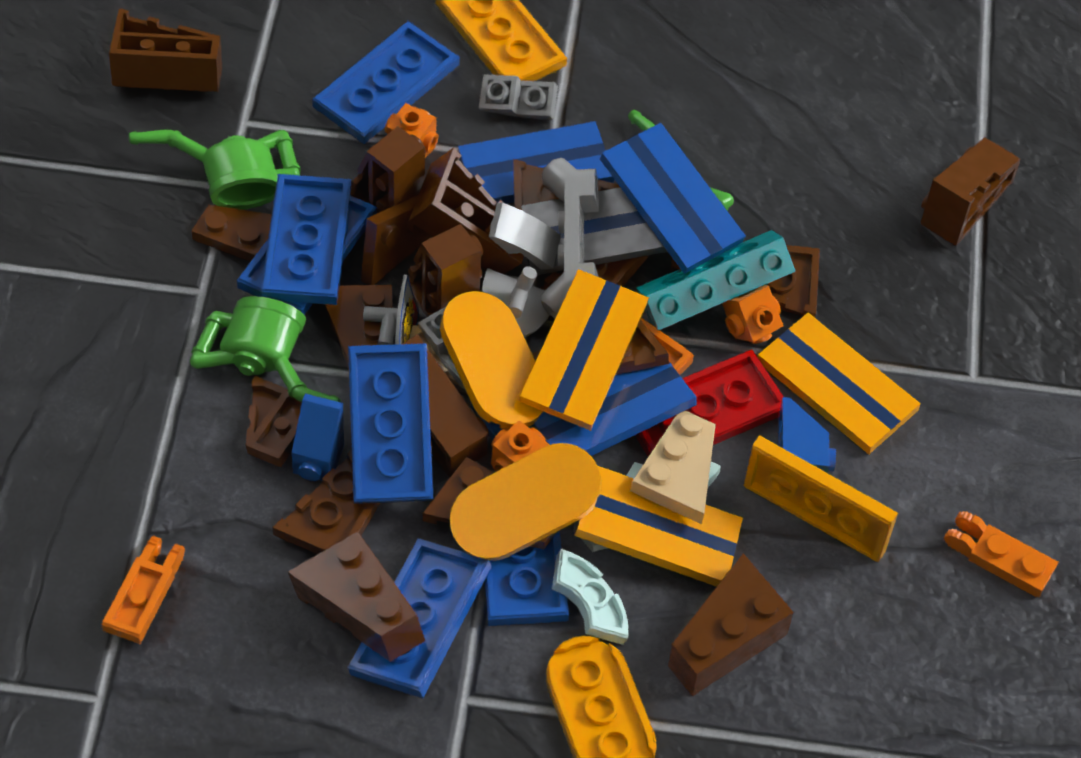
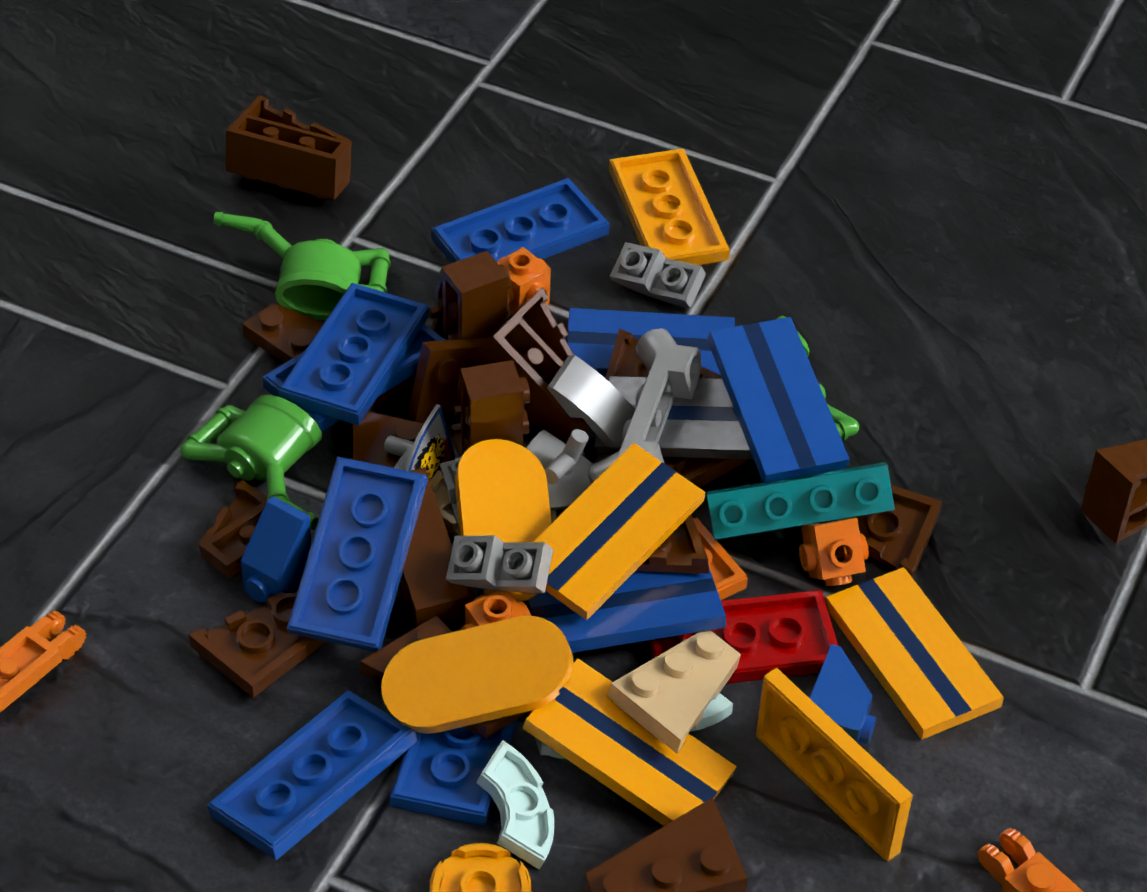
camera: 20 degrees right, 10 degrees down
(360, 595) = (247, 727): reddish brown wedge -> none
(510, 404) = (499, 565): none -> light grey slope

